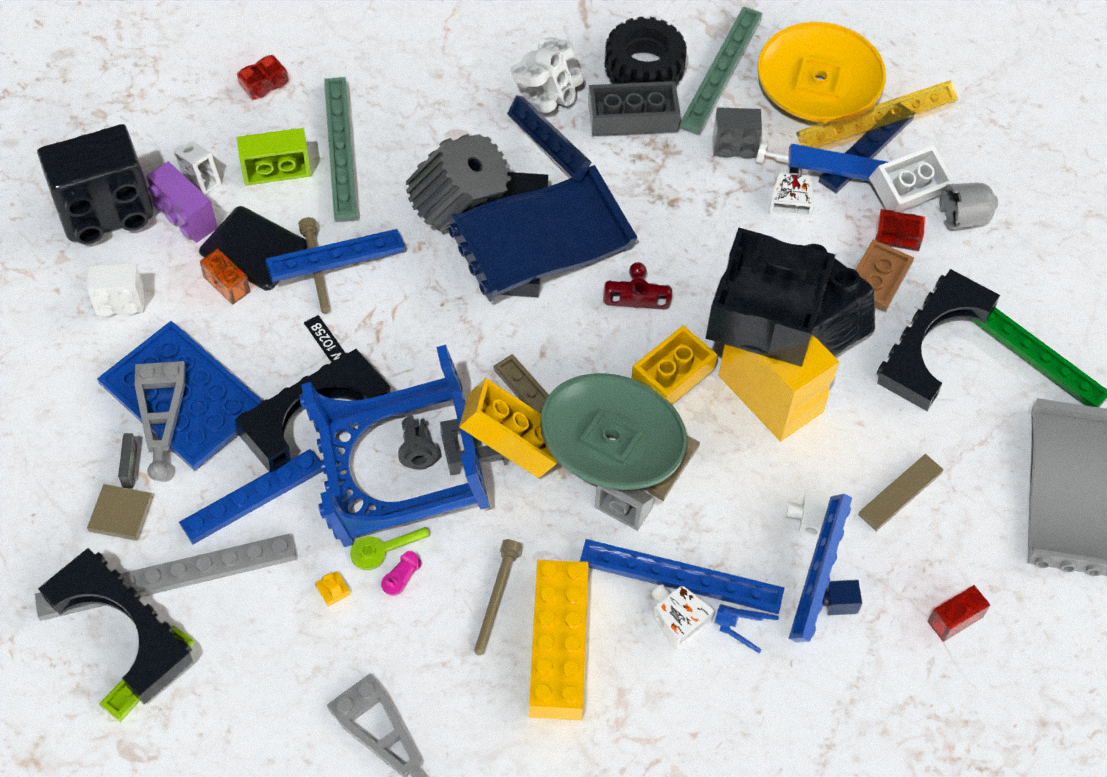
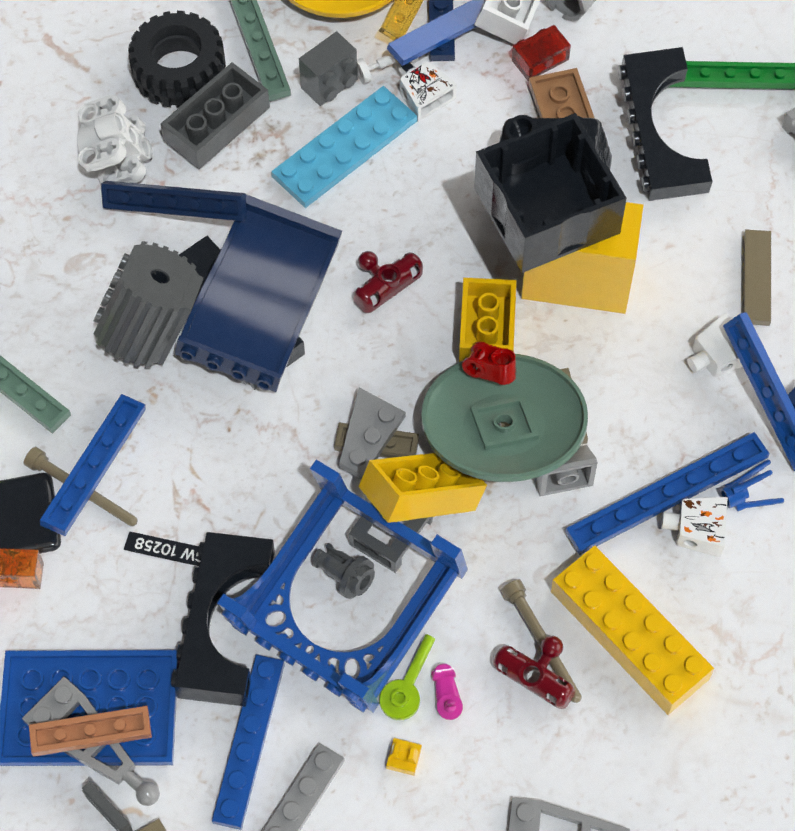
camera: 40 degrees left, 5 degrees up
(161, 403) = (90, 731): none -> nougat plate
(462, 598) = (521, 665): none -> dark red piece
(526, 372) = (369, 431): none -> light grey wing
(640, 391) = (492, 363): none -> red piece
(701, 191) = (344, 146): none -> medium azure plate

